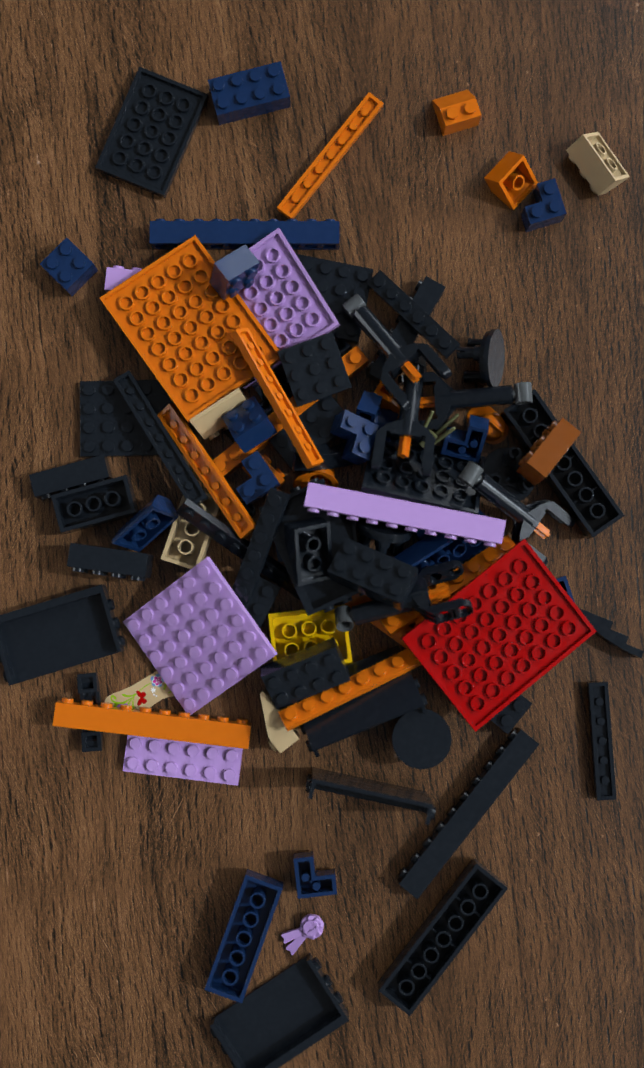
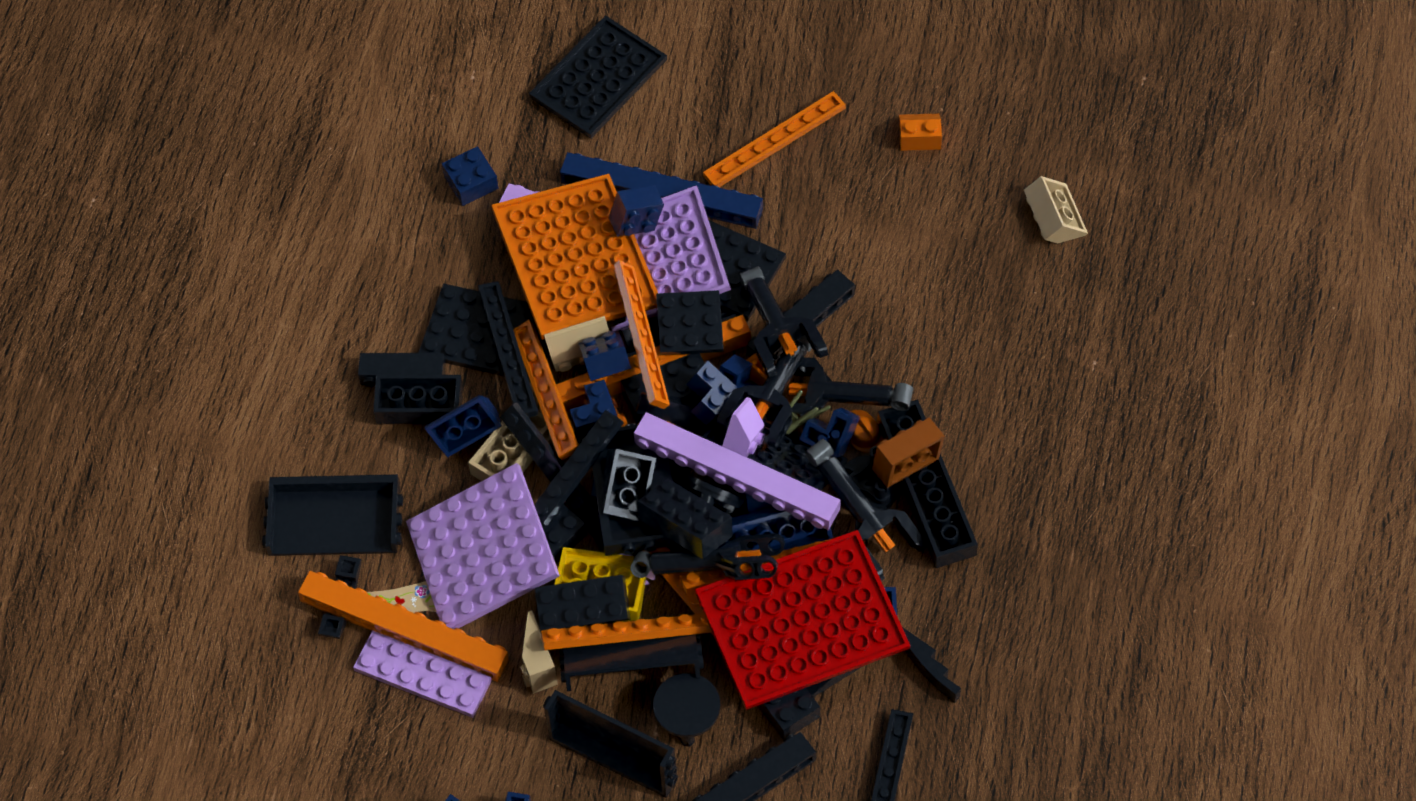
camera: 20 degrees right, 25 degrees down
(107, 560) = (415, 454): black brick -> none
(249, 93) = (709, 64): dark blue brick -> none
(400, 474) = (744, 429): none -> lavender slope
(413, 314) = (811, 299): black plate -> none
(489, 354) = (880, 357): black piece -> none
(511, 179) = (958, 205): orange slope -> none
(547, 209) = (986, 241): dark blue brick -> none

